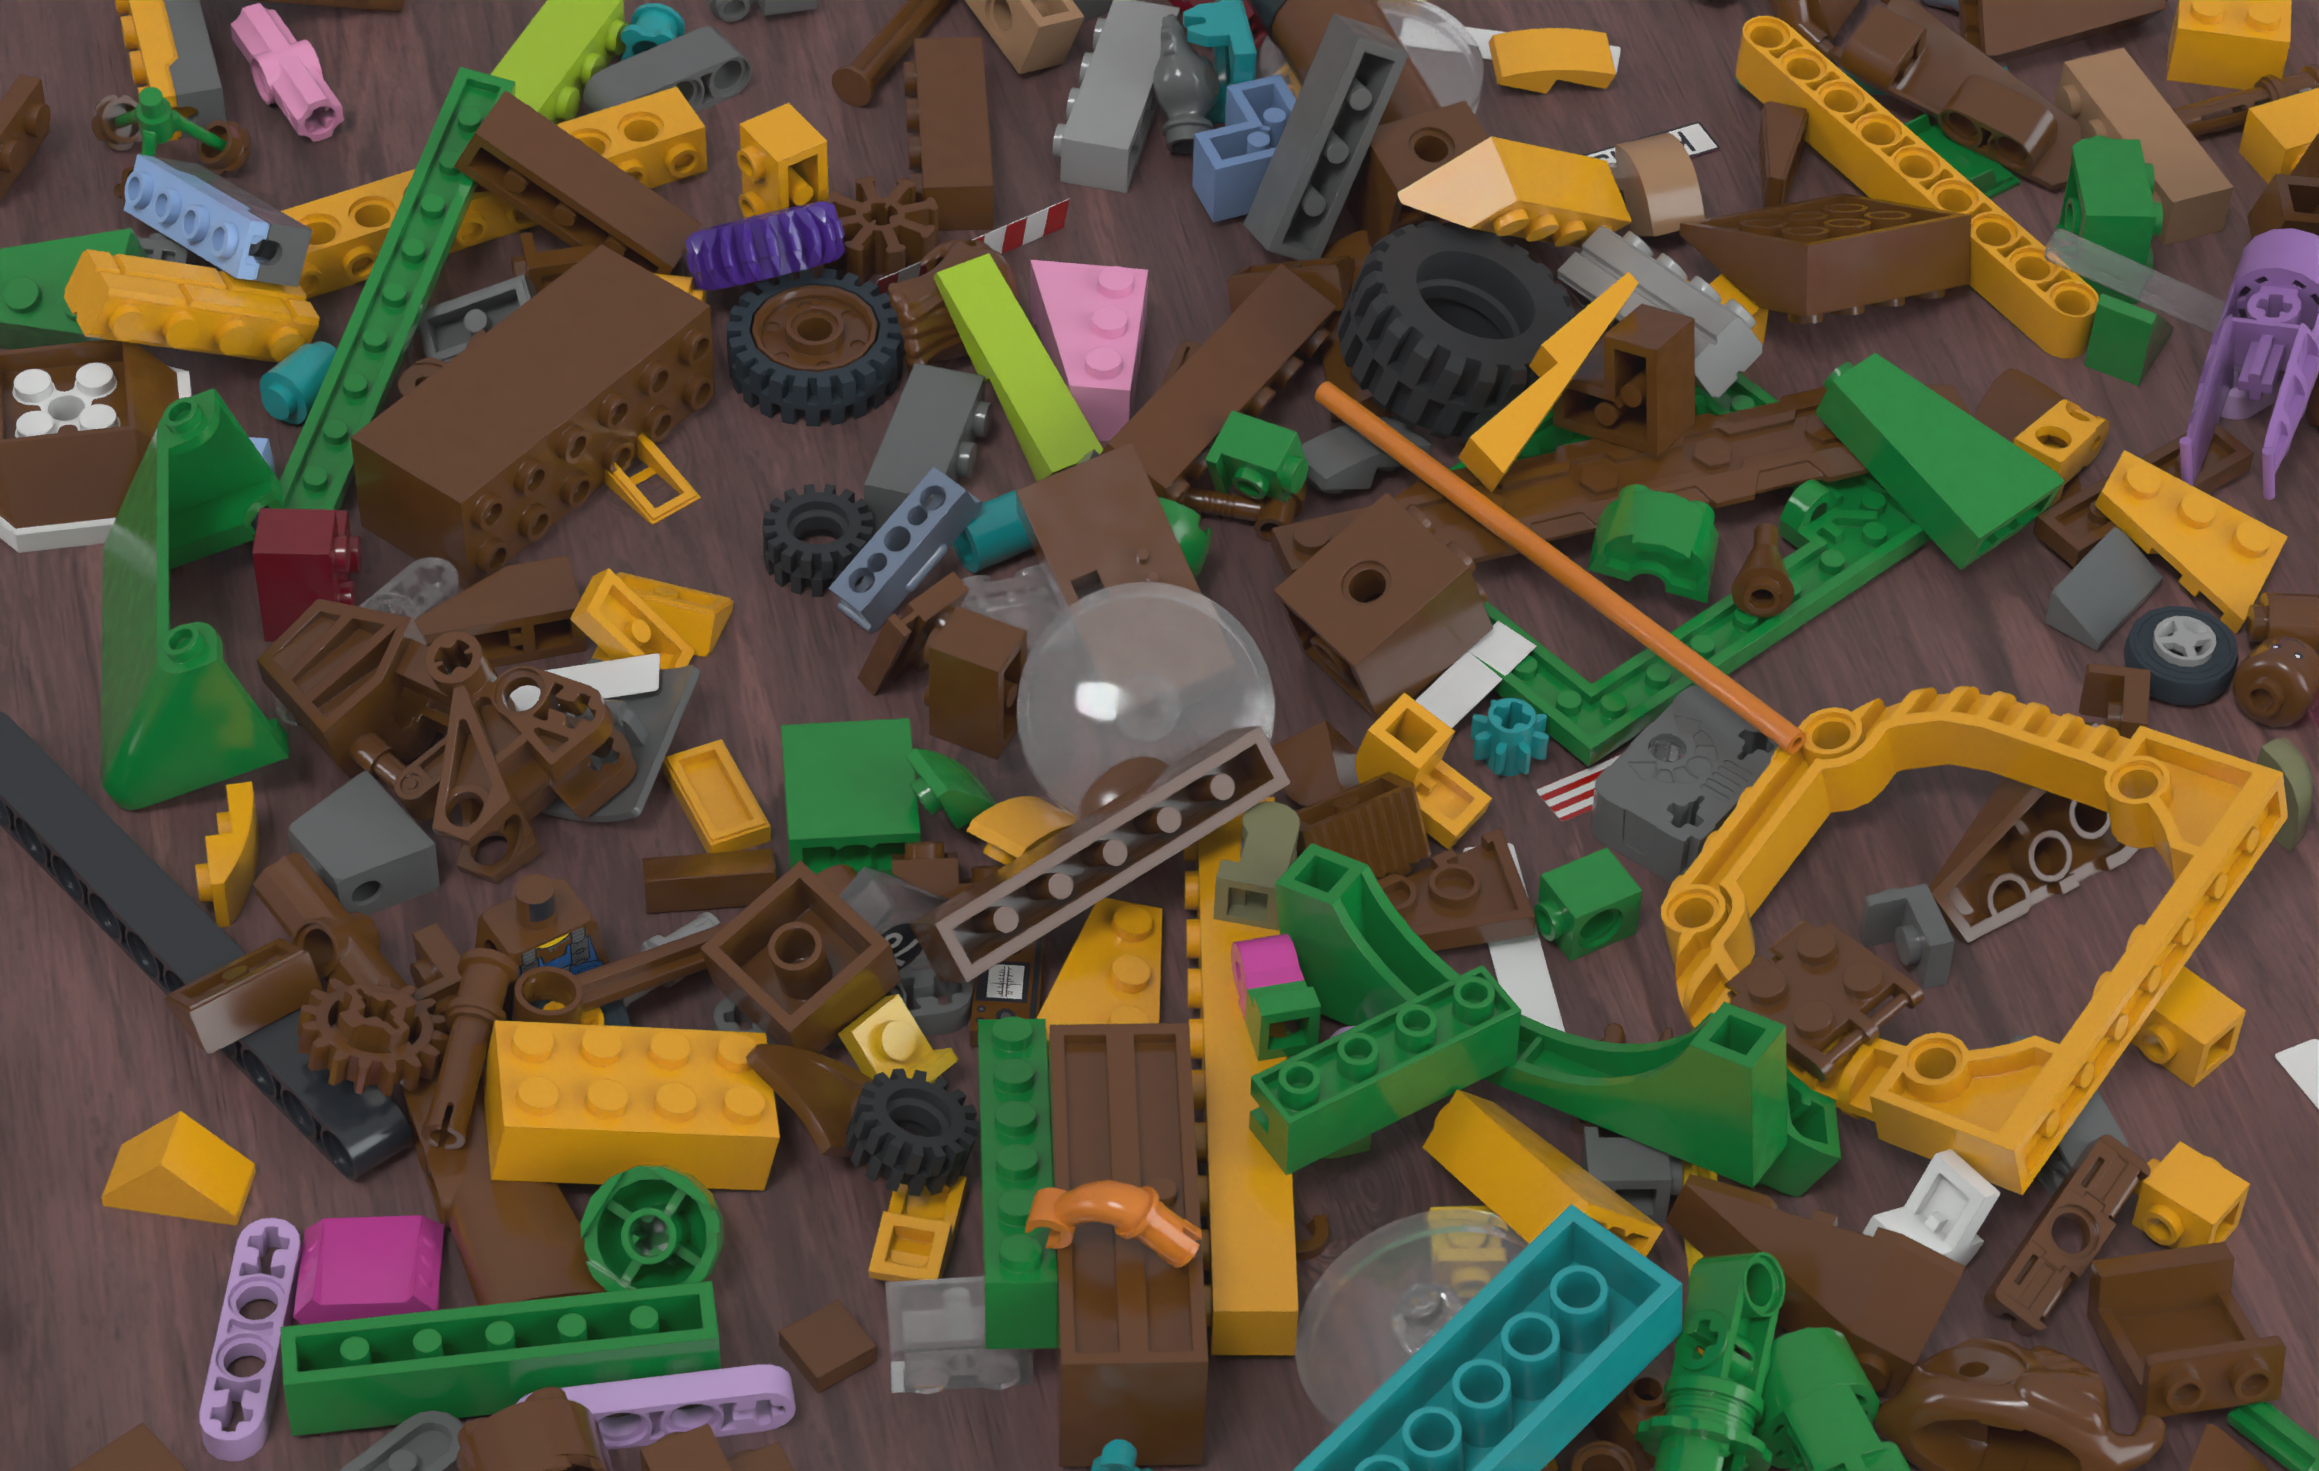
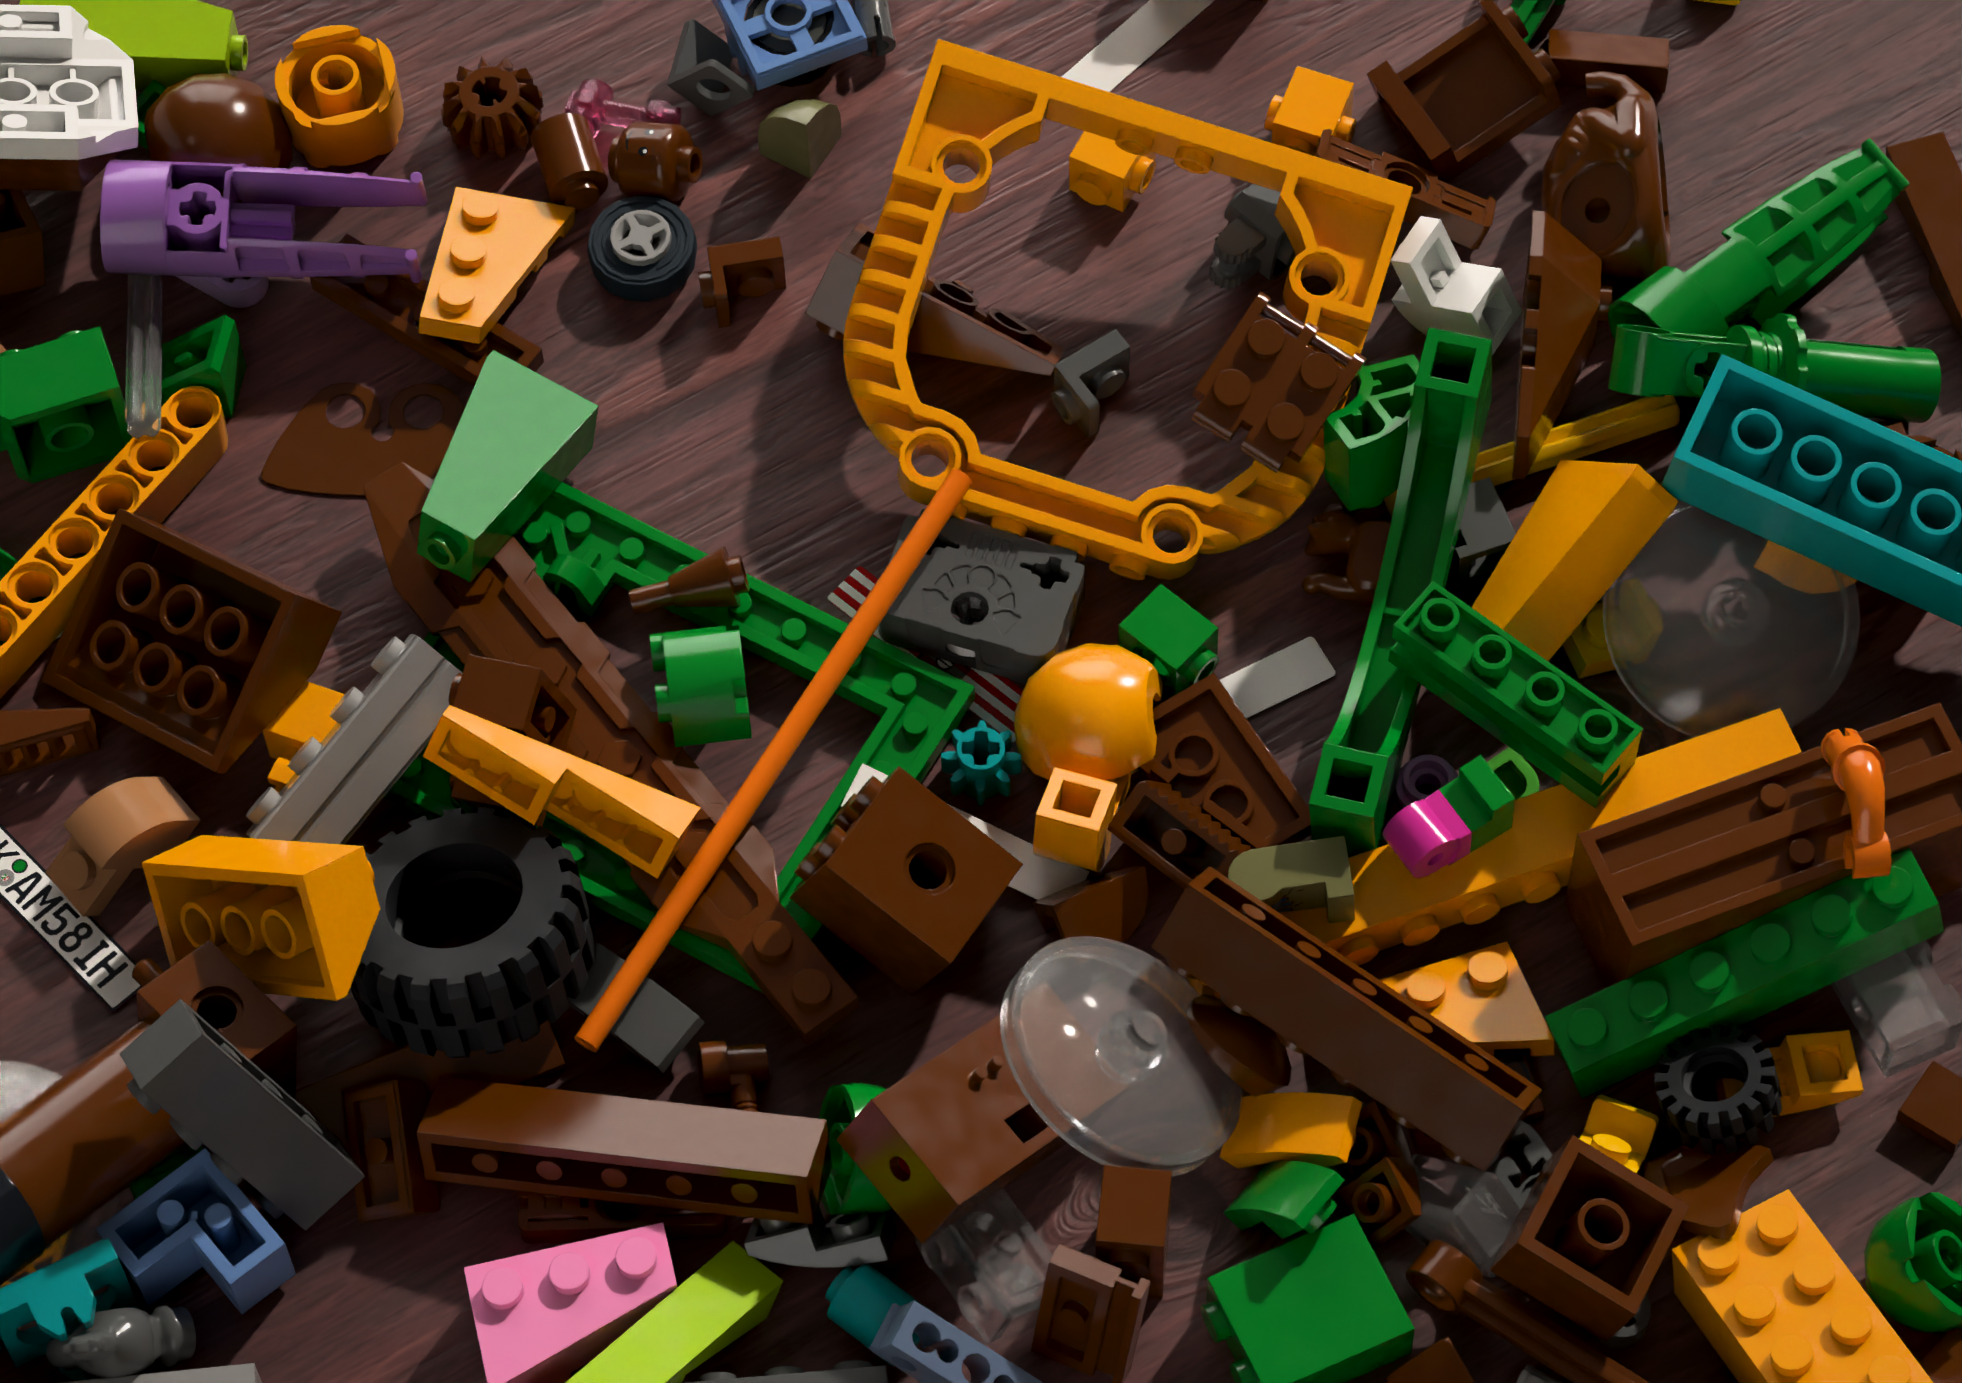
camera: 105 degrees left, 15 degrees up
(1257, 459) = (721, 1064): green brick -> none
(1526, 799) = (1089, 713): none -> light orange cylinder
(2065, 439) = (400, 395): light orange leg -> none
(2102, 591) = (575, 331): dark grey slope -> none

